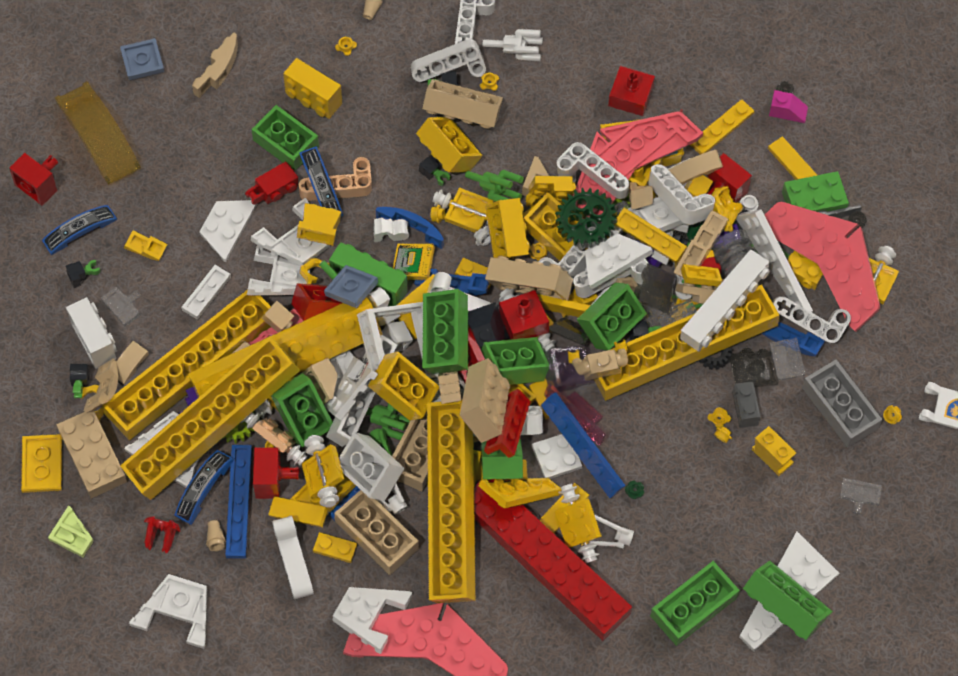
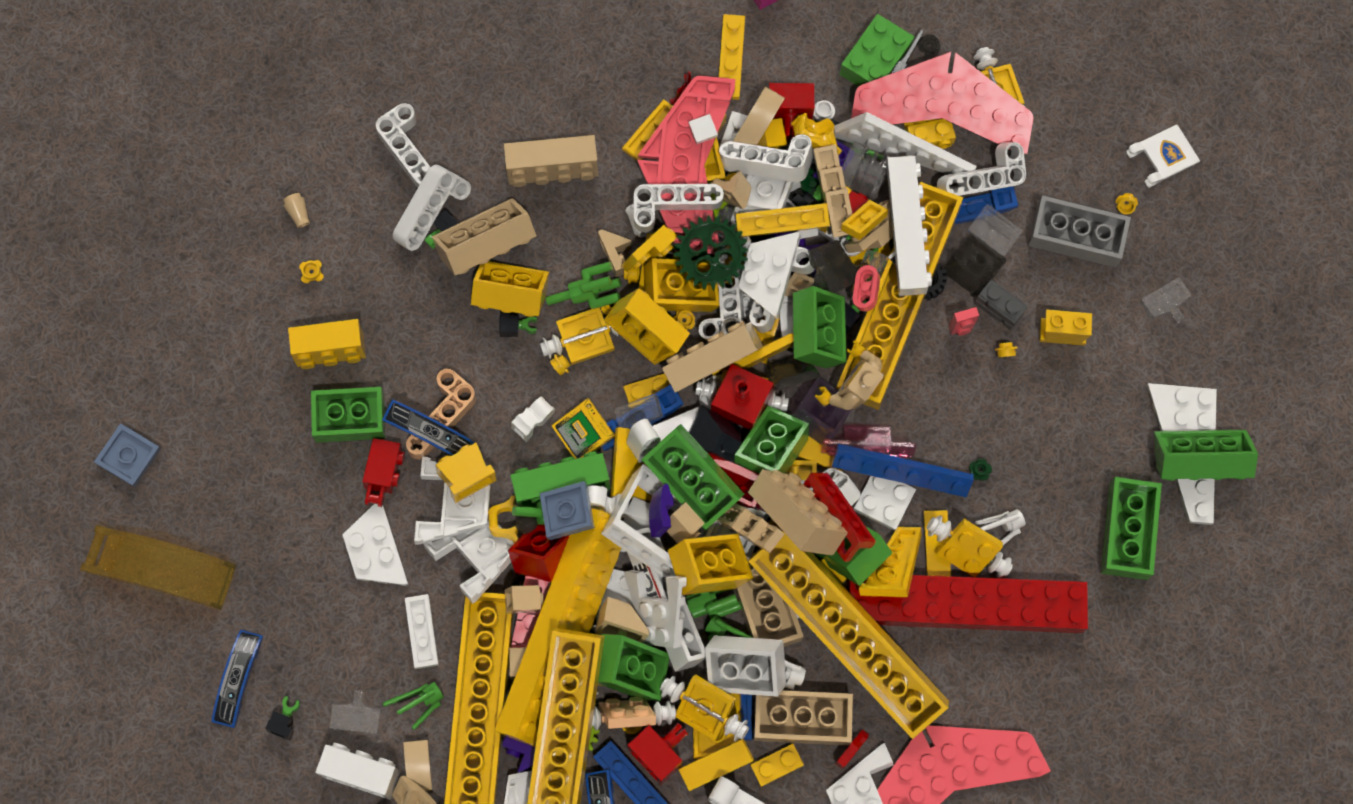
camera: 45 degrees left, 10 degrees up
(35, 178) = (146, 669): red brick -> none
(147, 247) = (318, 638): yellow slope -> none
(174, 330) = (428, 694): none -> bright green plant
(222, 62) = (209, 390): tan slope -> none
(323, 280) = (526, 524): none -> clear smoke plate
(388, 577) = (852, 749): none -> red tile
(400, 335) = (658, 511): none -> dark purple slope
(413, 350) = (685, 524): none -> tan brick
(415, 221) = (576, 388): blue slope -> none
(460, 277) = (644, 408): none -> clear tile
(482, 236) = (622, 349): white plate -> none
(489, 77) = (487, 193): yellow plate -> none
(517, 44) = (473, 133): white plant -> none
(547, 94) = (551, 160): none -> tan brick
(631, 91) = (620, 90): red brick -> none
(653, 144) = (703, 129): none -> white tile
(663, 316) = (865, 289): none -> coral plate
(710, 392) = (963, 321): none -> coral plate
(719, 412) = (988, 336): yellow plate -> none
(790, 159) = (822, 37): yellow tile -> none

